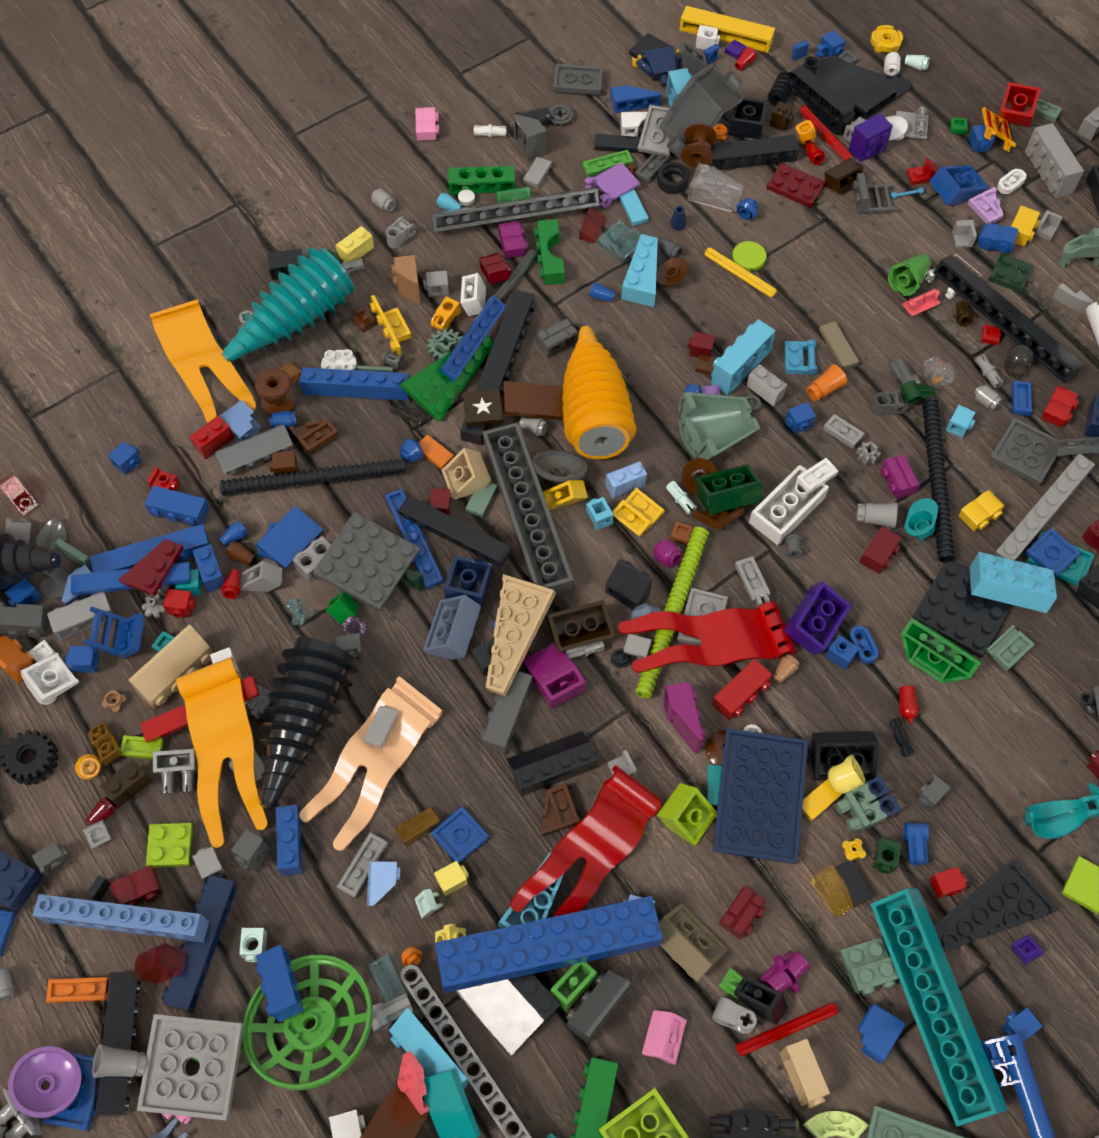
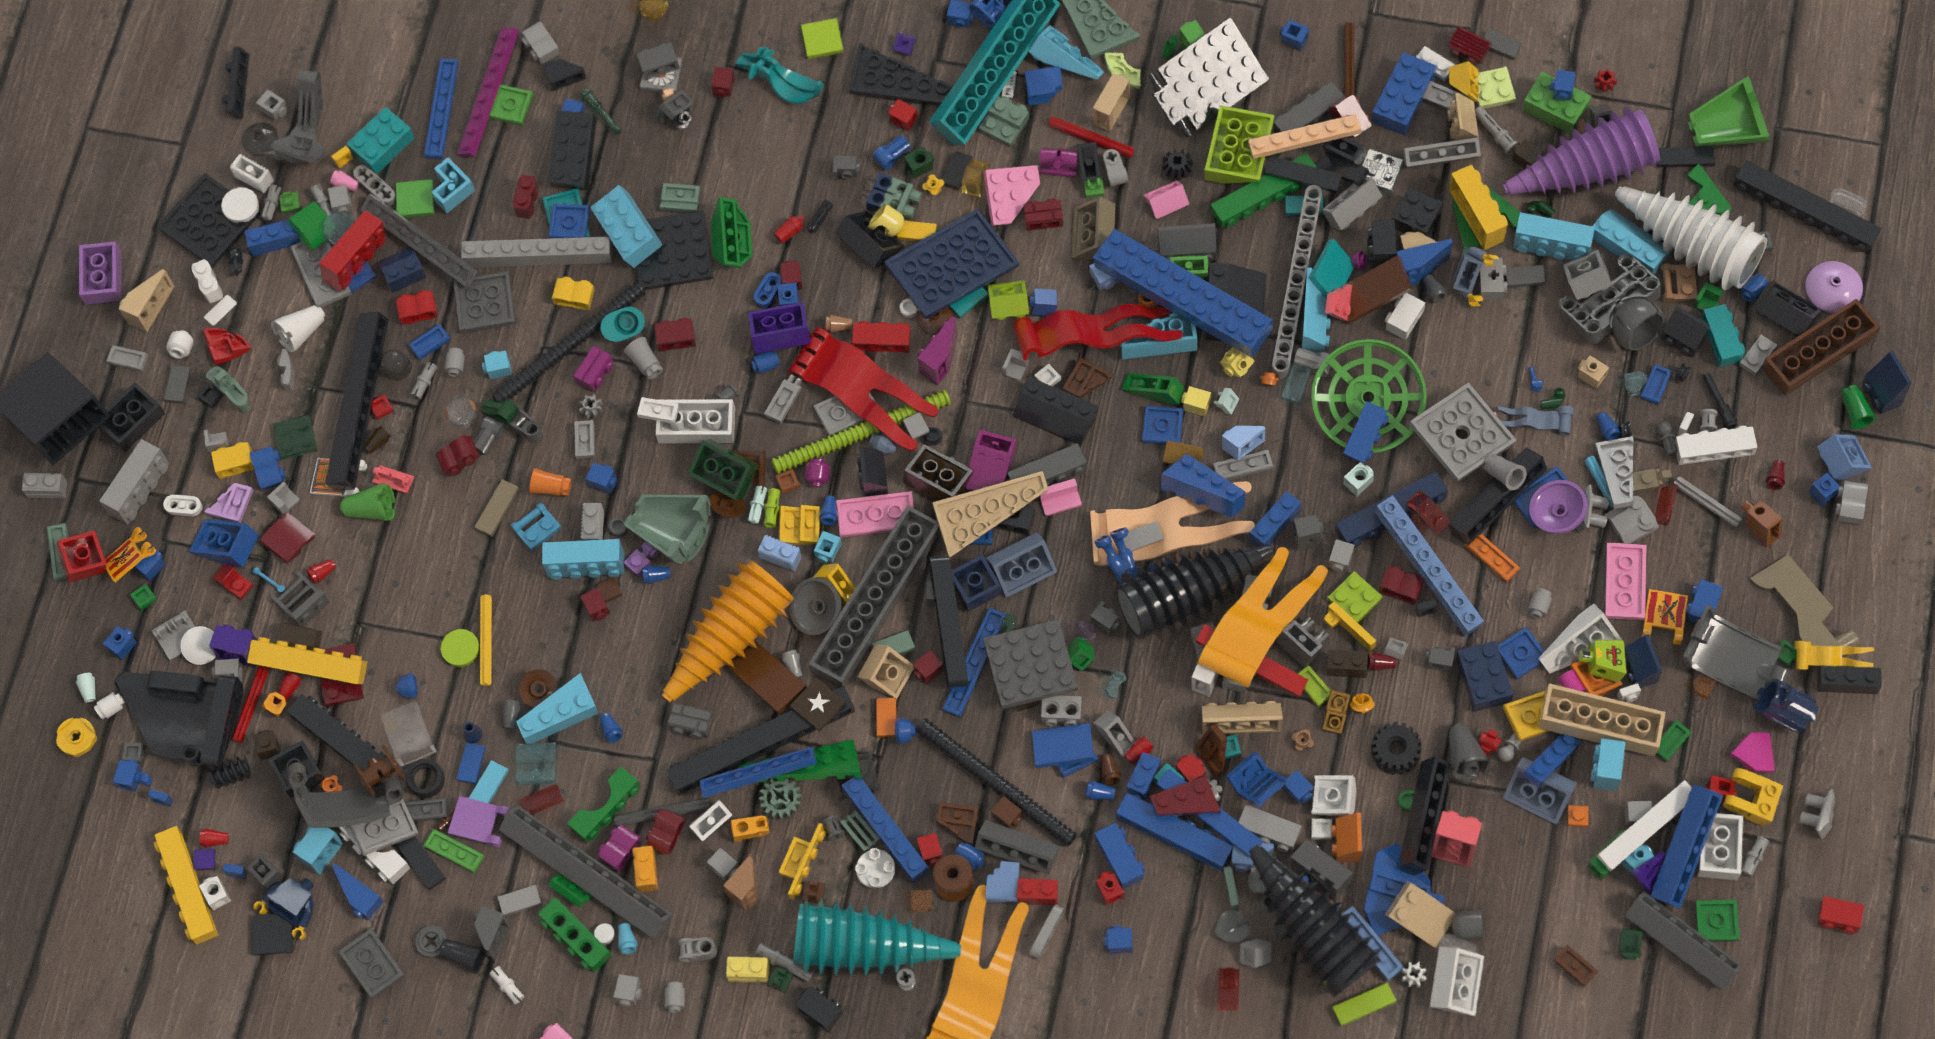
camera: 125 degrees left, 5 degrees up
(167, 815) = (1337, 615): none -> yellow hinge
(171, 627) = (1213, 749): none -> reddish brown wing
(181, 422) = (1047, 931): none -> light grey beam
(313, 401) = (930, 849): none -> red brick
(373, 691) = (1118, 563): none -> blue piece
(378, 804) = (1203, 486): none -> blue wedge
(415, 181) = (627, 990): none -> light grey brick
(476, 704) = (1060, 497): none -> bright pink panel
(481, 240) = (645, 869): none -> light orange brick
(496, 855) = (1154, 387): none -> green slope
(588, 783) = (1048, 375): none -> white plate
(596, 566) = (871, 513): none -> bright pink tile
(628, 538) = (828, 513): none -> blue cone
(657, 208) = (471, 763): none -> blue tile
(657, 835) = (1043, 302): none -> blue brick
(669, 504) = (772, 508): none -> lime pin
(683, 1082) = (1177, 170): none -> black gear
(790, 903) = (1009, 191): none -> bright pink plate
(797, 591) = (765, 362): none -> blue brick
(818, 162) = (306, 661): none -> yellow brick
(861, 669) = (791, 273): none -> dark red brick
(885, 219) = (320, 571): none -> red cone
(899, 1081) = (1054, 49): none -> medium azure wedge
(901, 1003) = (1010, 87): none -> sticker
(902, 344) = (457, 455): none -> dark red brick
(930, 219) = (287, 537): none -> dark red slope
(934, 92) = (120, 642): none -> blue brick

